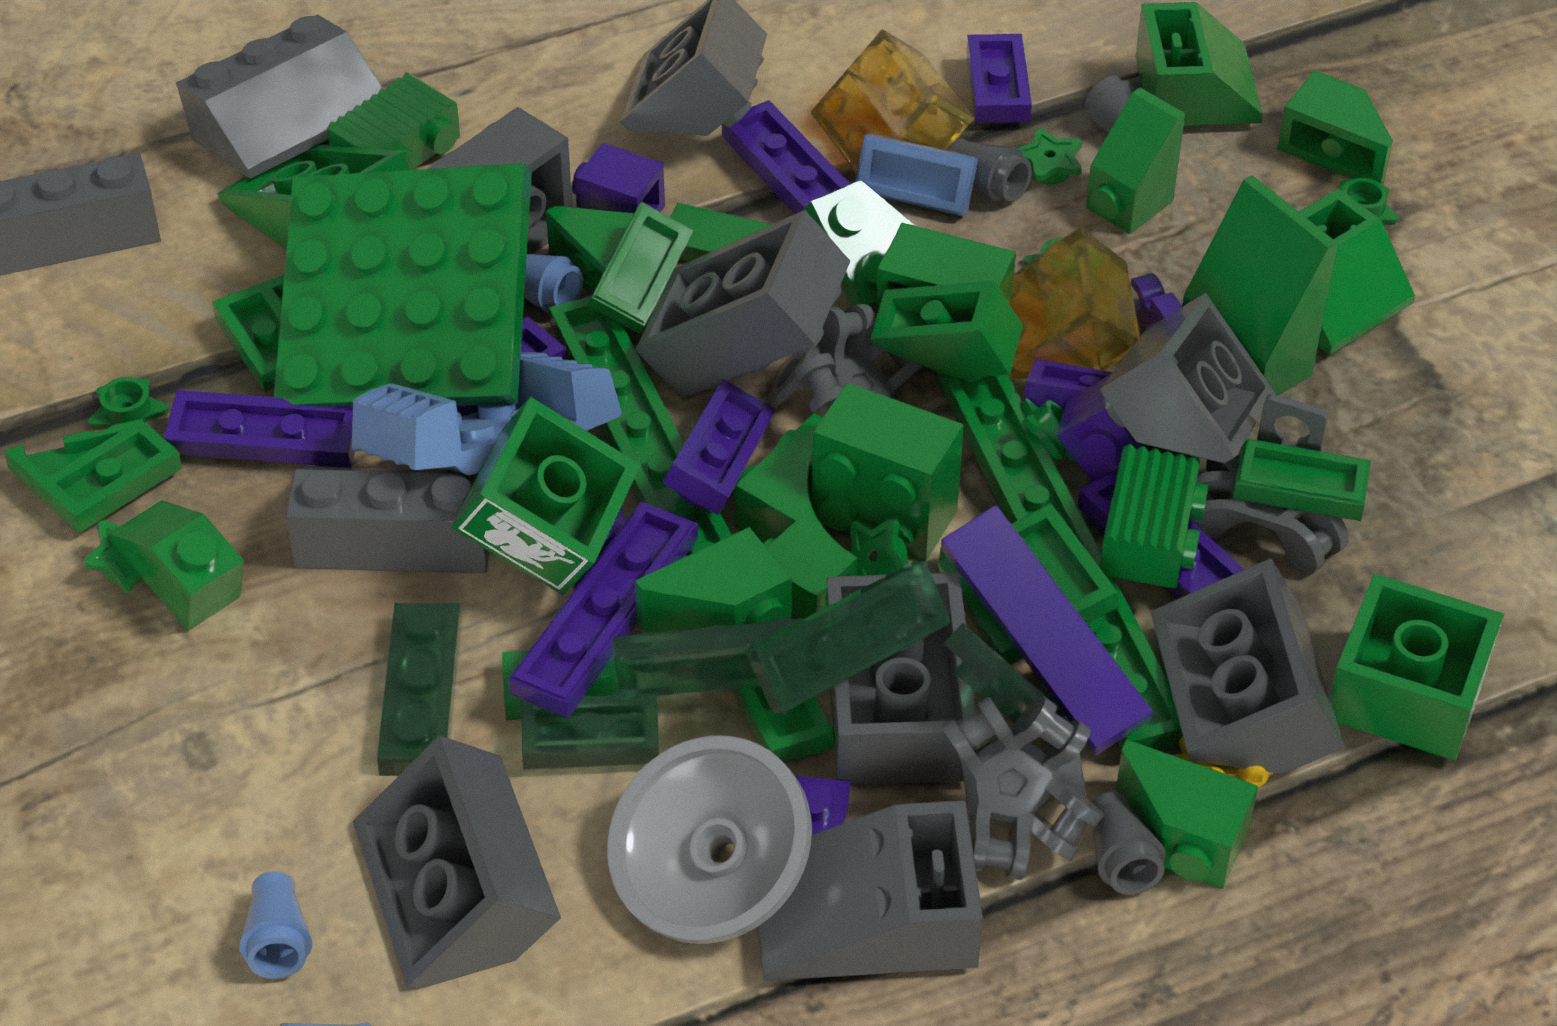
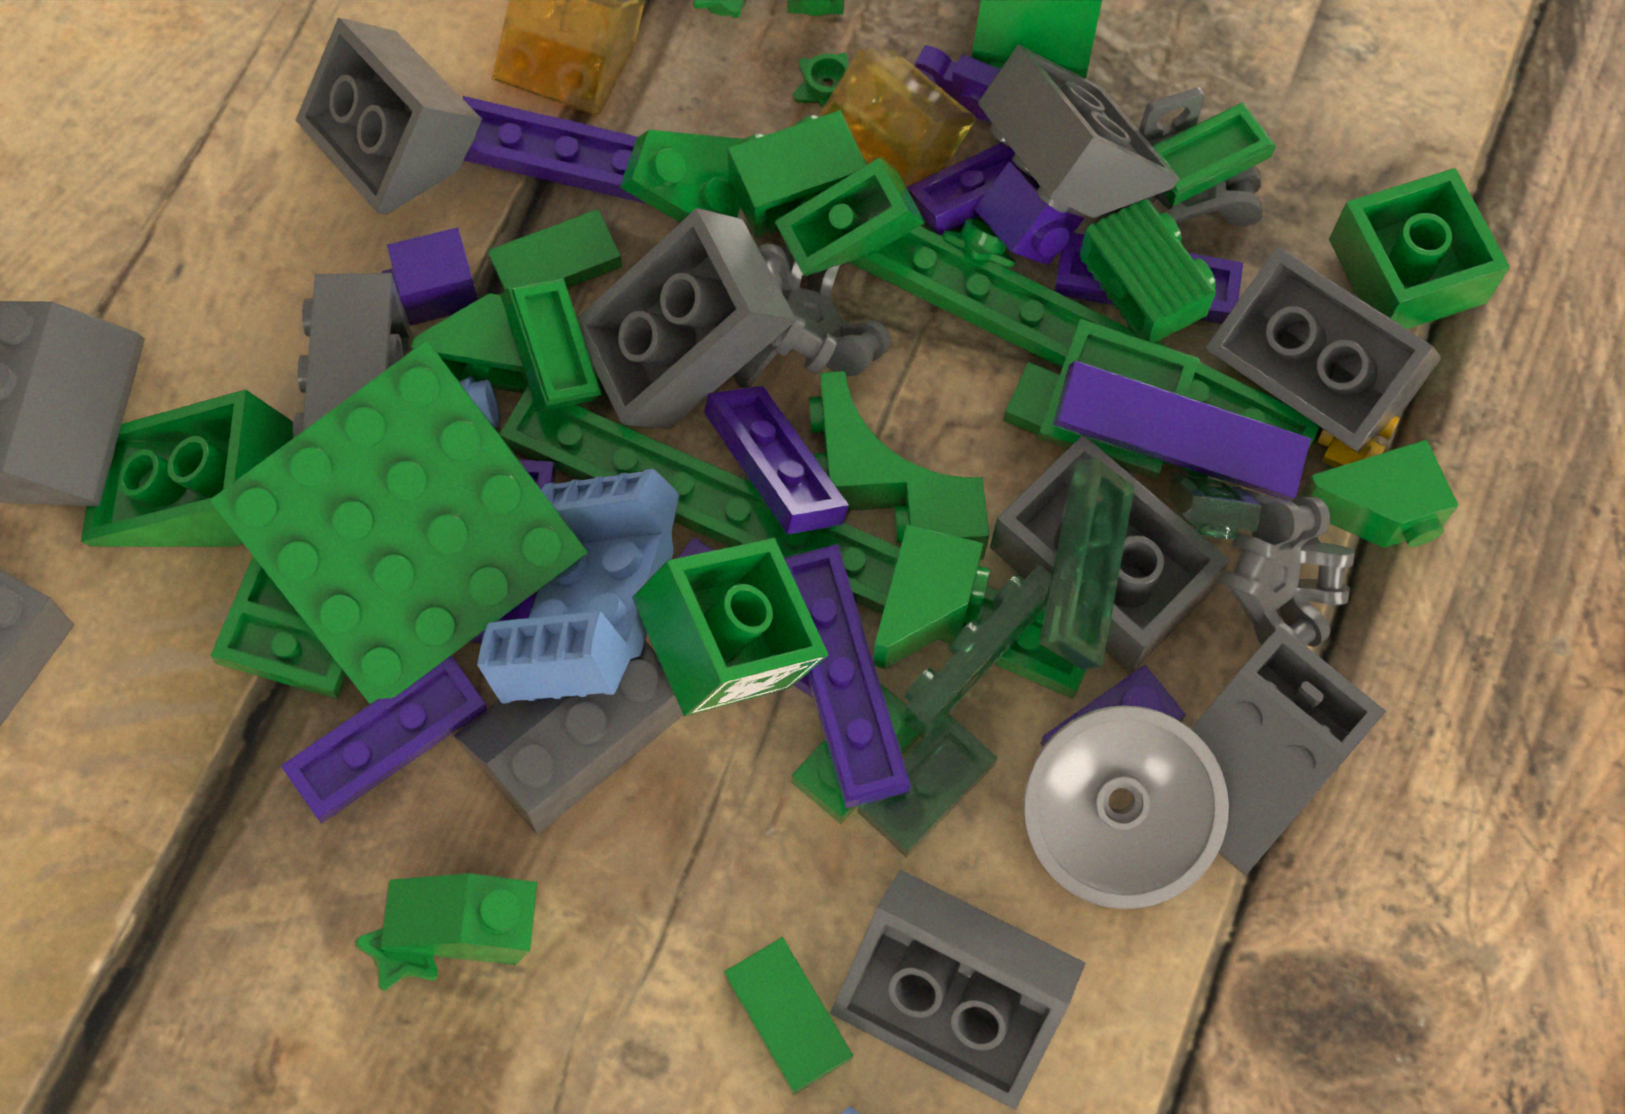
camera: 45 degrees left, 20 degrees up
(96, 470) = (287, 896): green wing -> none
(122, 393) = (227, 791): green plate -> none
(321, 797) = (788, 1015): none -> green tile
(401, 118) = (178, 354): green brick -> none
(418, 682) = (757, 857): clear green plate -> none
(883, 539) = (976, 442): green plate -> none
(886, 463) = (928, 381): green brick -> none
(917, 174) = (649, 82): medium blue tile -> none
(1000, 170) = (694, 33): dark grey cone -> none
(1125, 847) = (1378, 557): dark grey cone -> none

